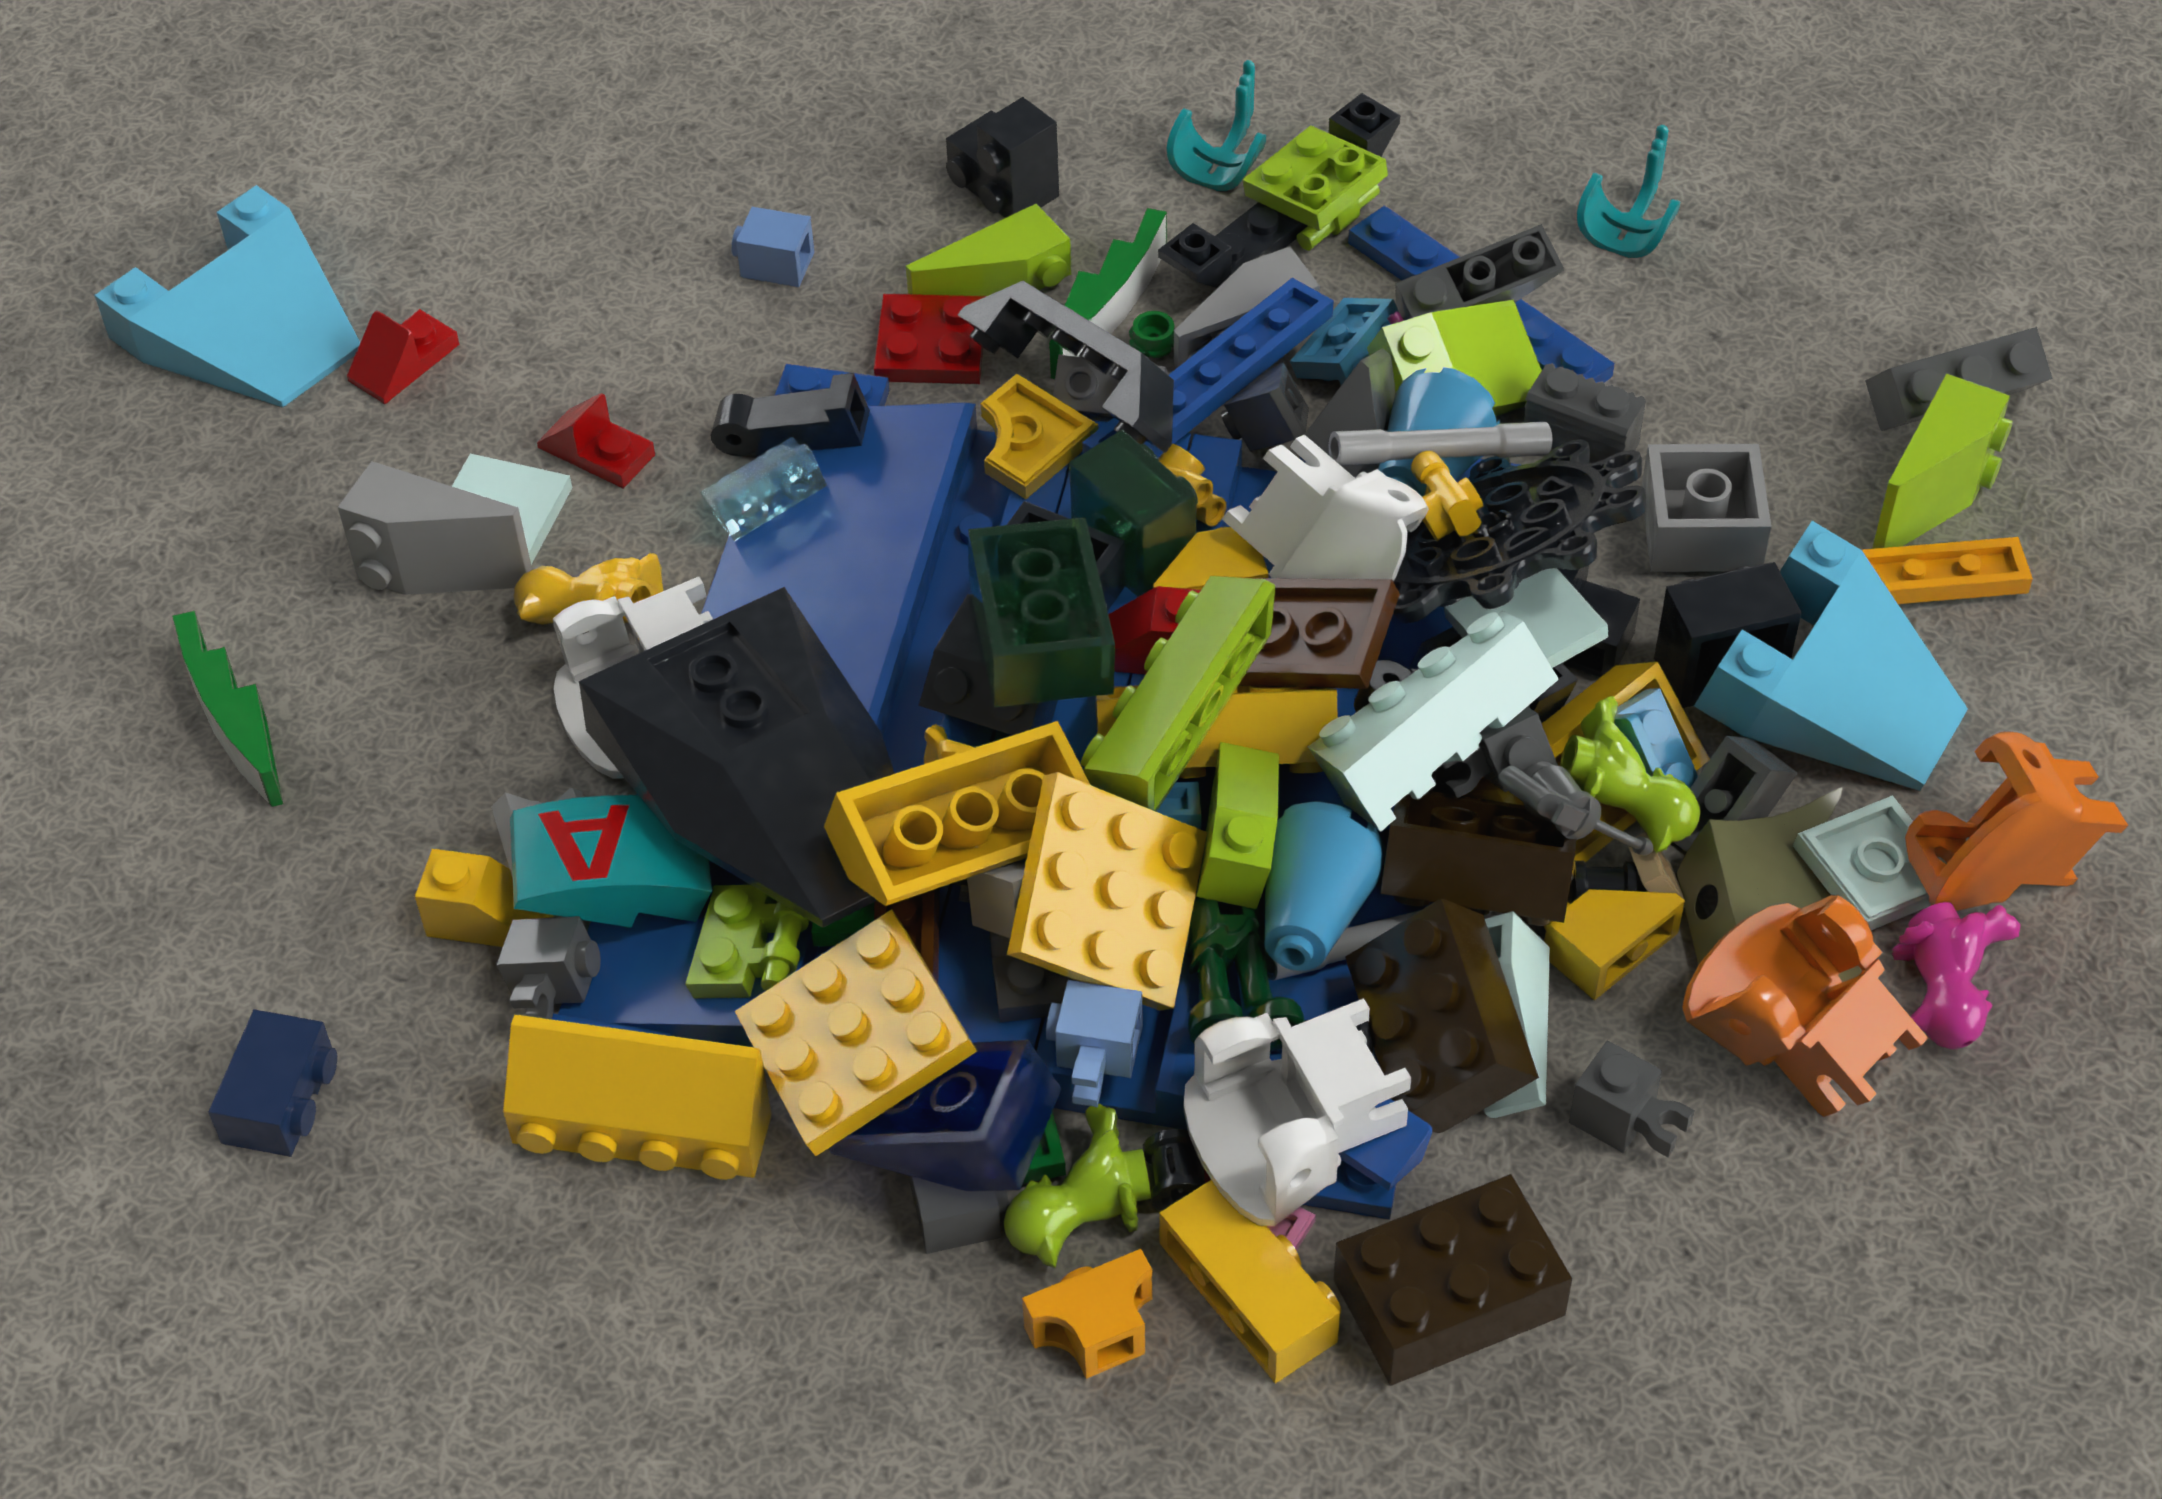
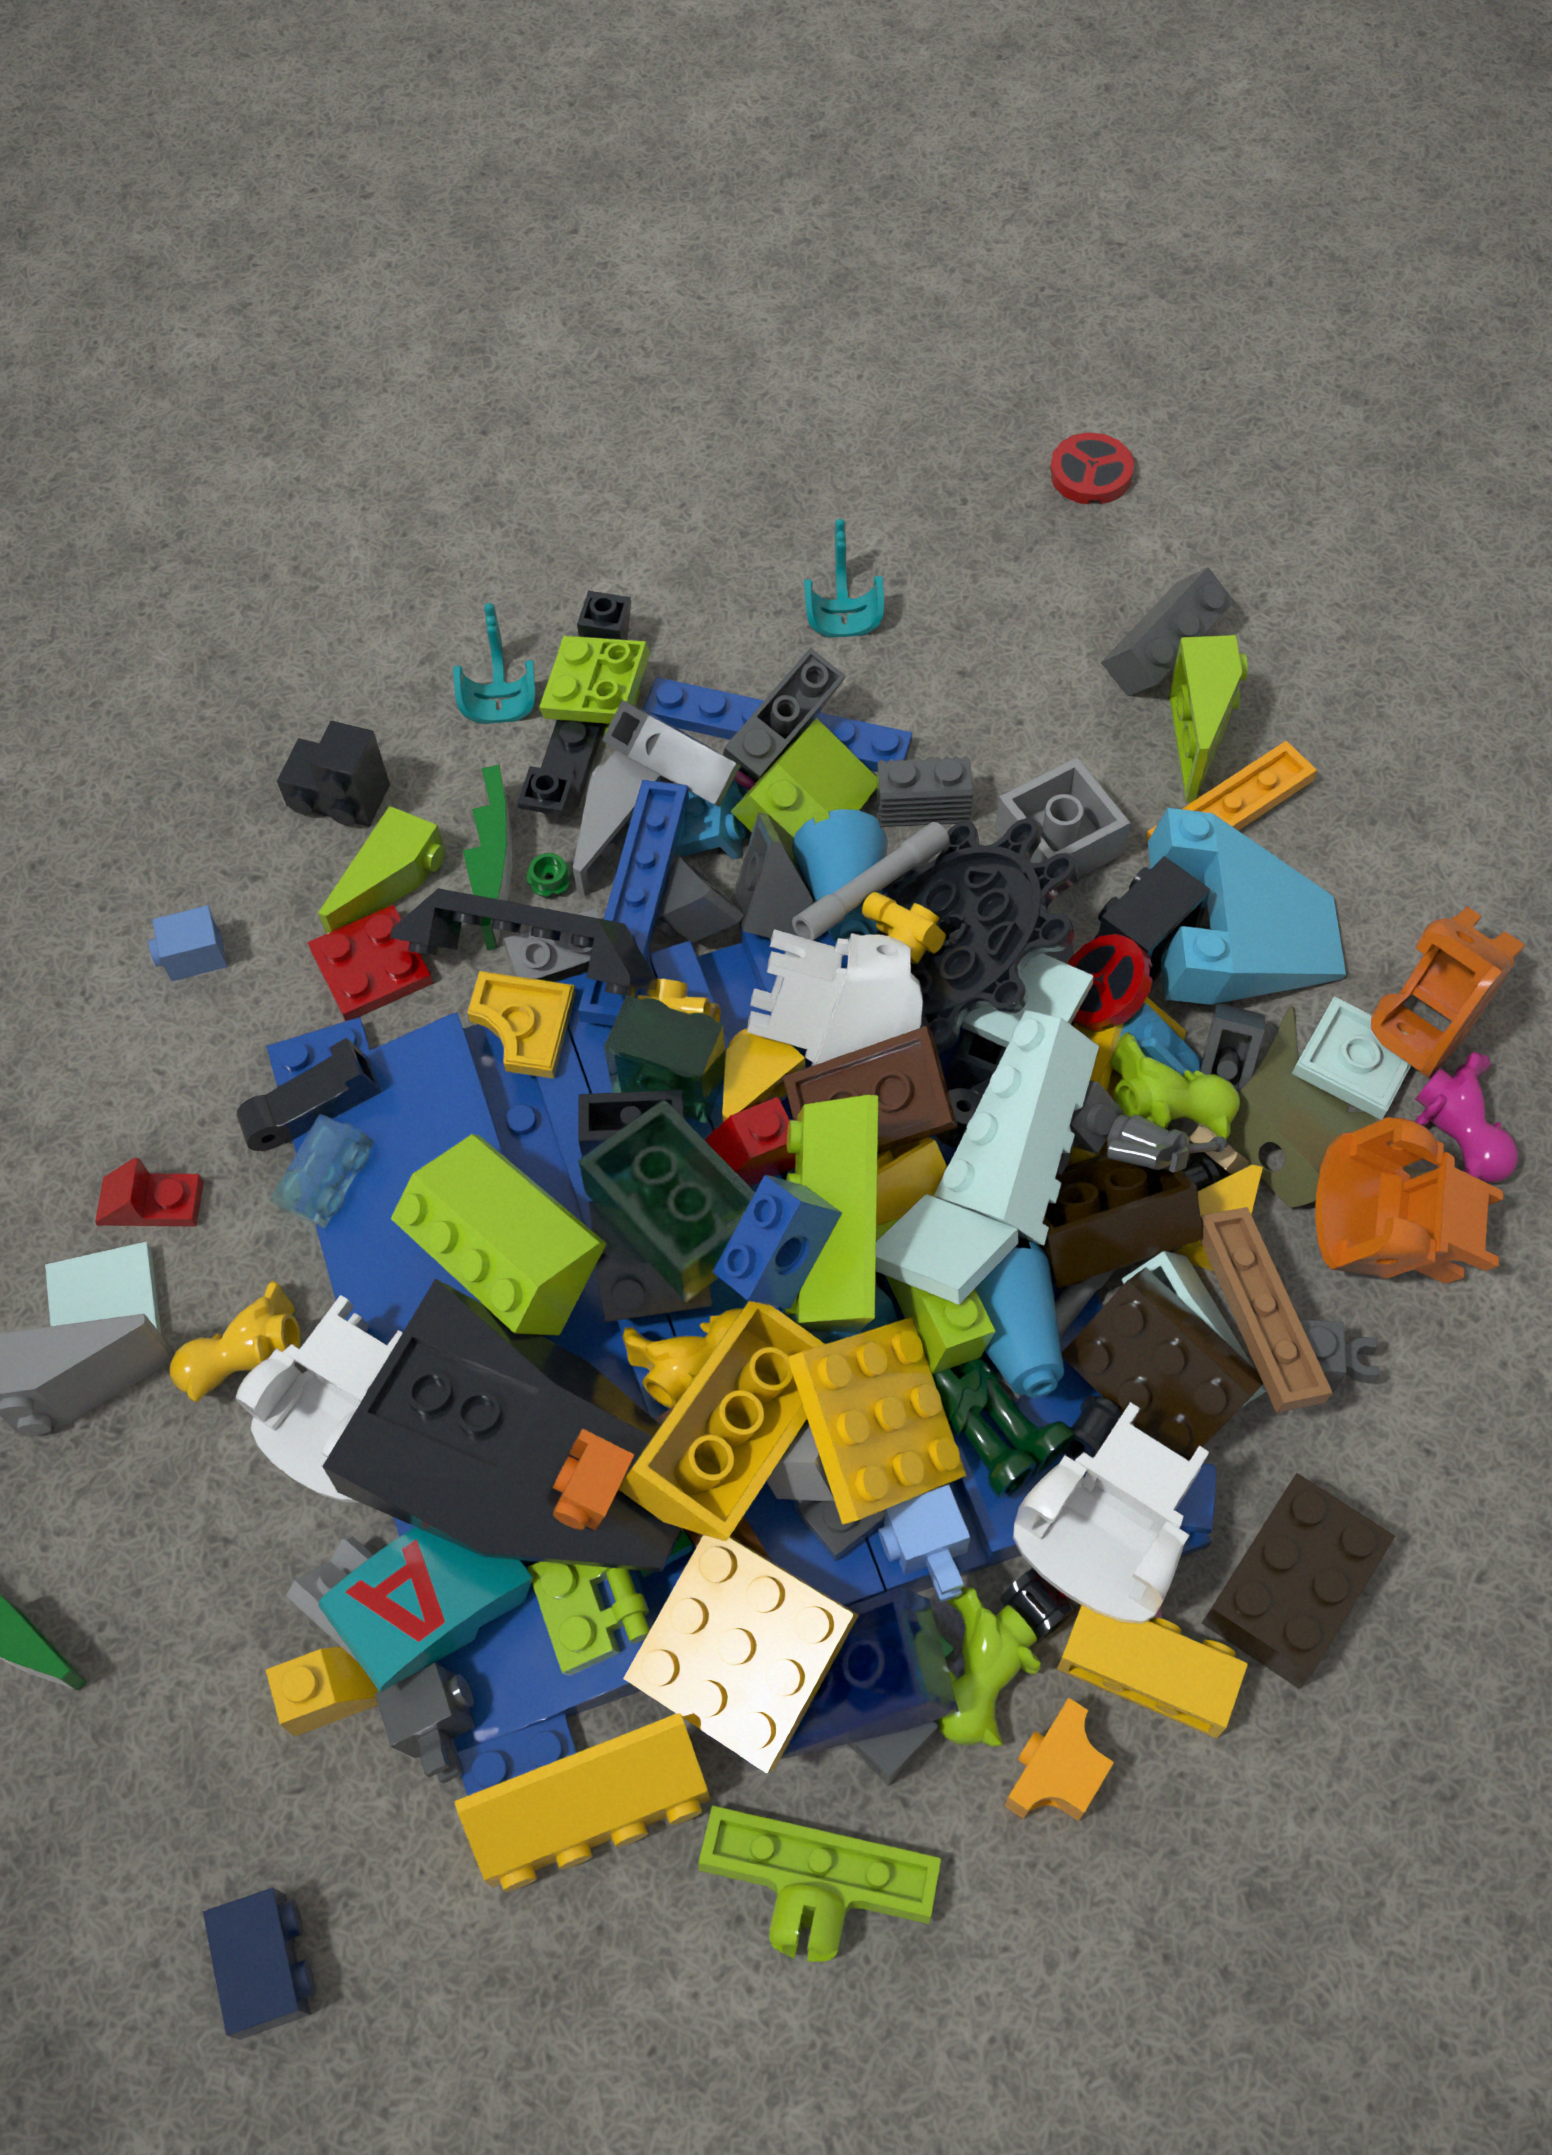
camera: 30 degrees left, 10 degrees up
(796, 801) = (590, 1482): none -> orange brick
(803, 1281) = (817, 1876): none -> lime plate
(870, 589) = (500, 1236): none -> lime slope
(1094, 708) = (777, 1242): none -> blue brick
(1271, 777) = (943, 1248): none -> light aqua tile
(1340, 267) = (671, 752): none -> slope
(1577, 1011) = (1263, 1311): none -> medium nougat plate
(1634, 653) = (1119, 980): none -> red tile
(1999, 200) = (1091, 468): none -> red tile

